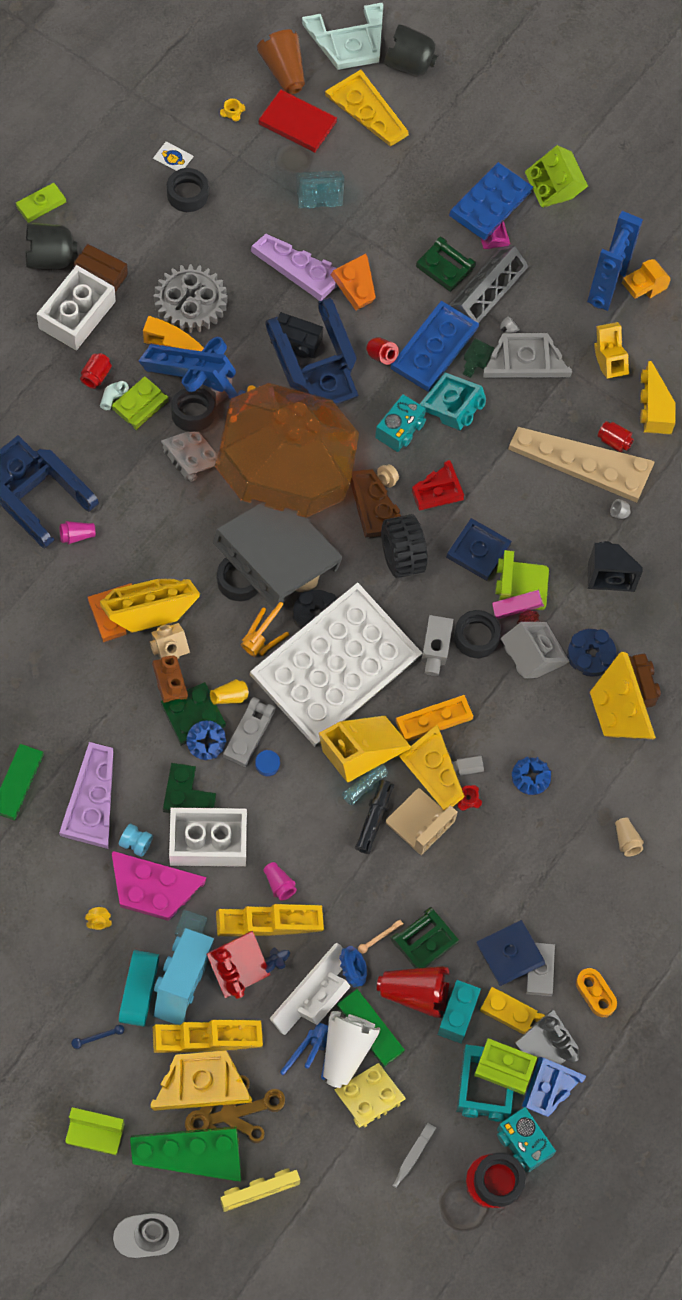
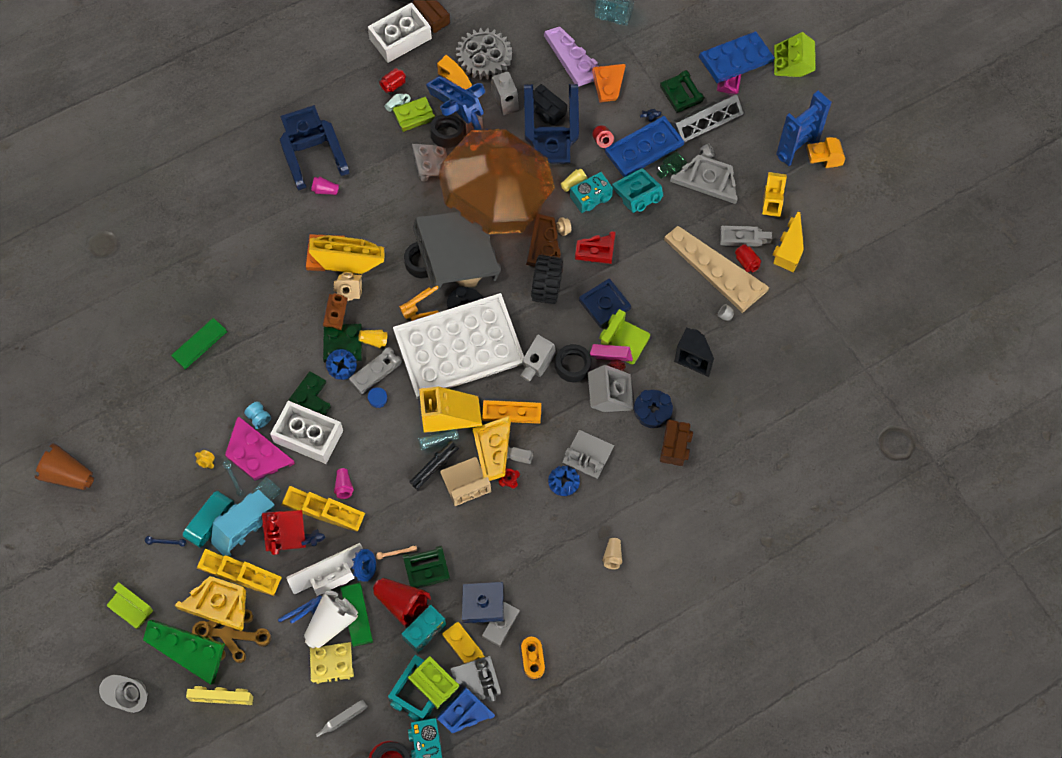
camera: 30 degrees right, 0 degrees up
(90, 803) = (242, 374): lavender wing -> none
(126, 915) = (226, 464): none -> clear light blue hinge
(240, 335) = (502, 87): none -> light grey torso
(373, 415) = (573, 179): none -> light yellow cone
(423, 303) = (650, 114): none -> dark blue plant
(544, 734) = (588, 454): none -> light grey hinge
(598, 412) = (744, 235): none -> light grey hinge
(620, 702) = (653, 452): yellow wing -> none

